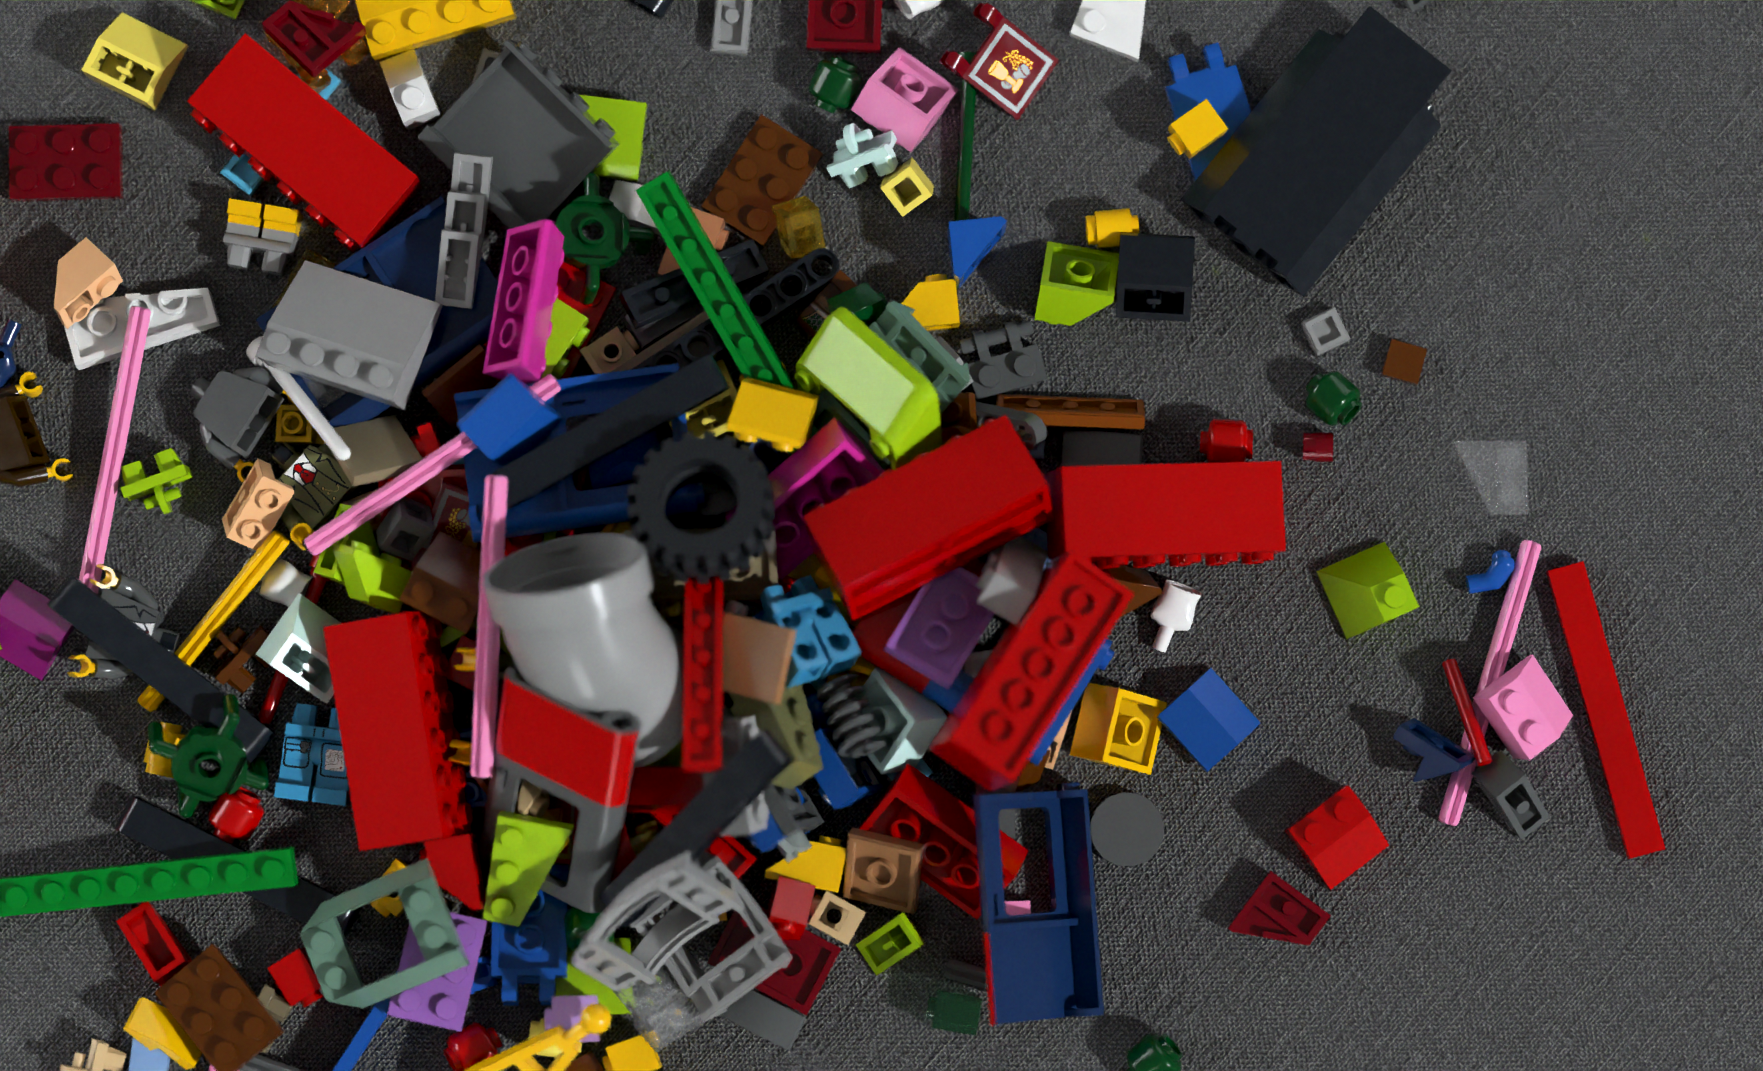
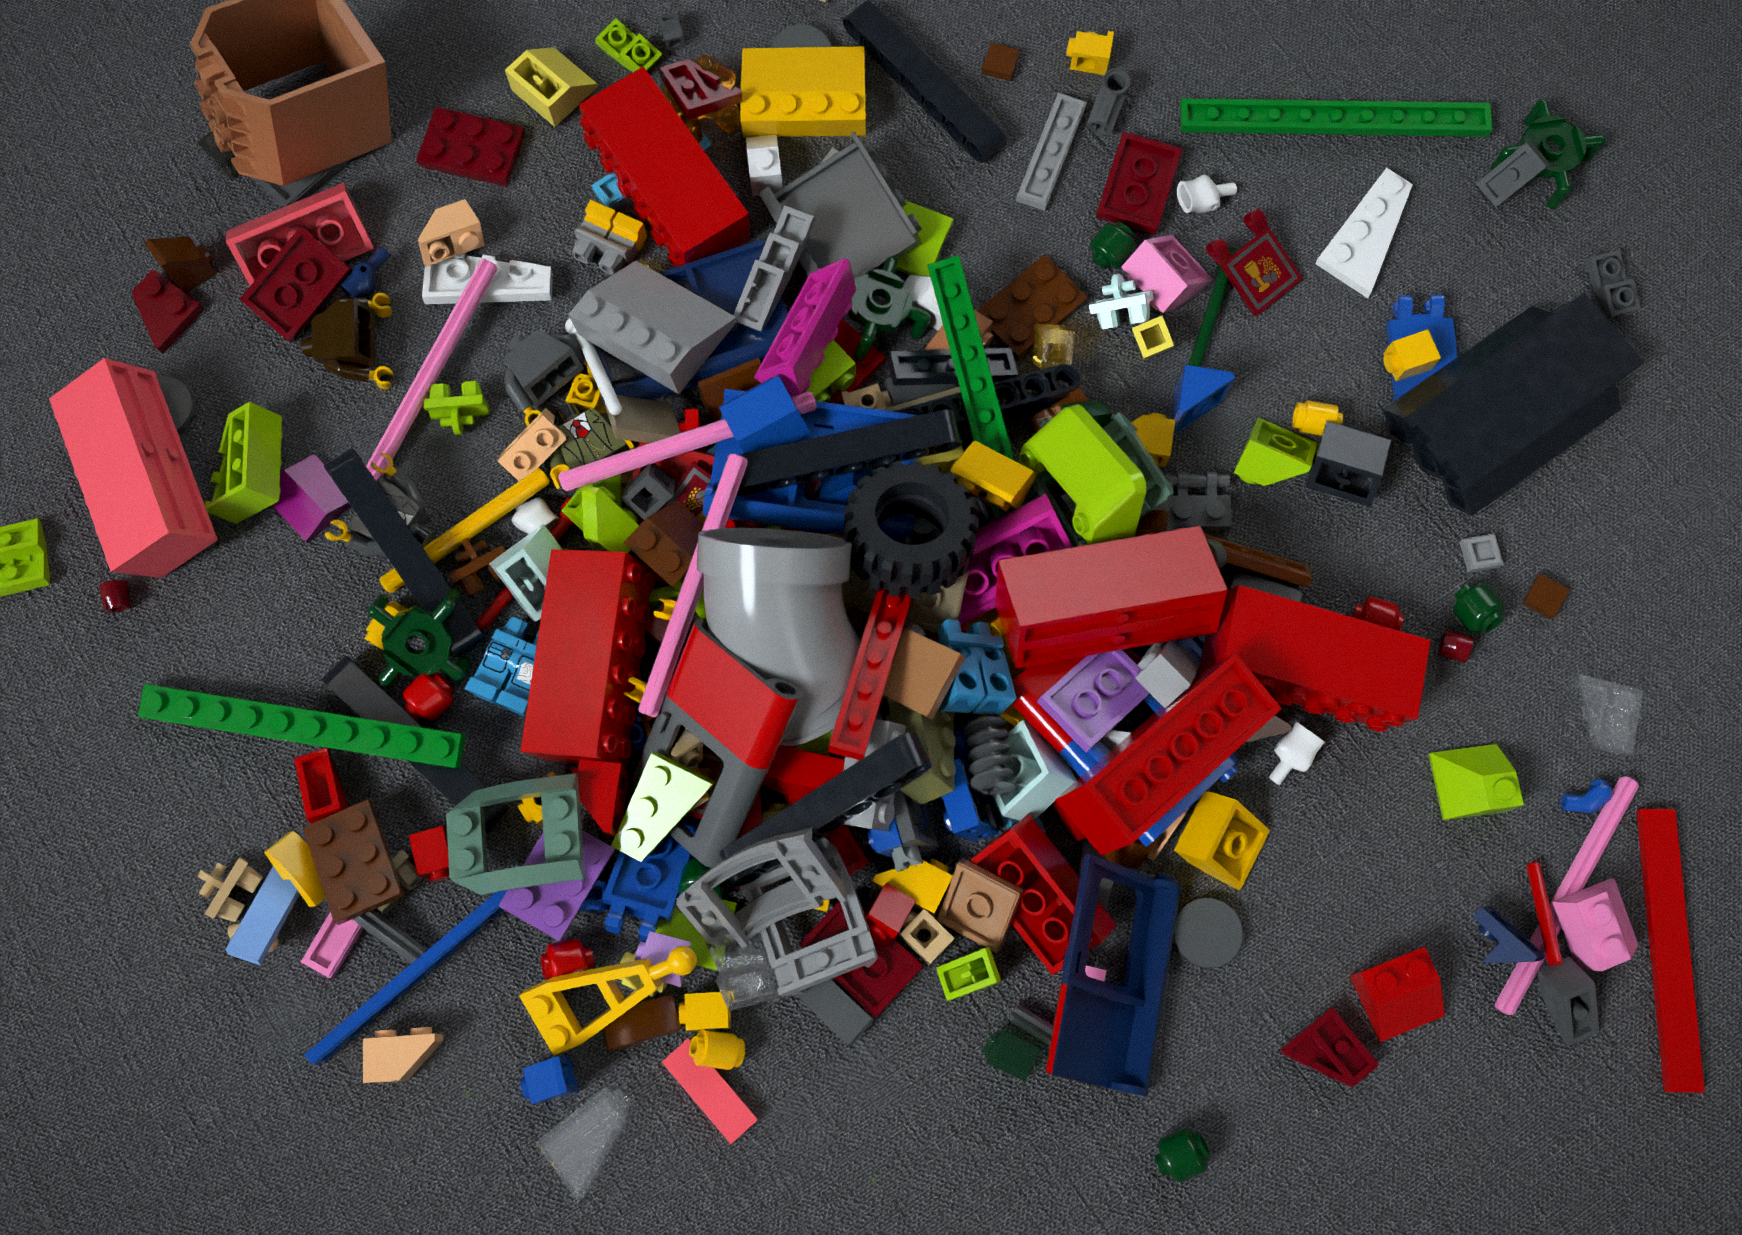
camera: 15 degrees right, 10 degrees down
(1208, 720) = (1304, 855): blue slope -> none

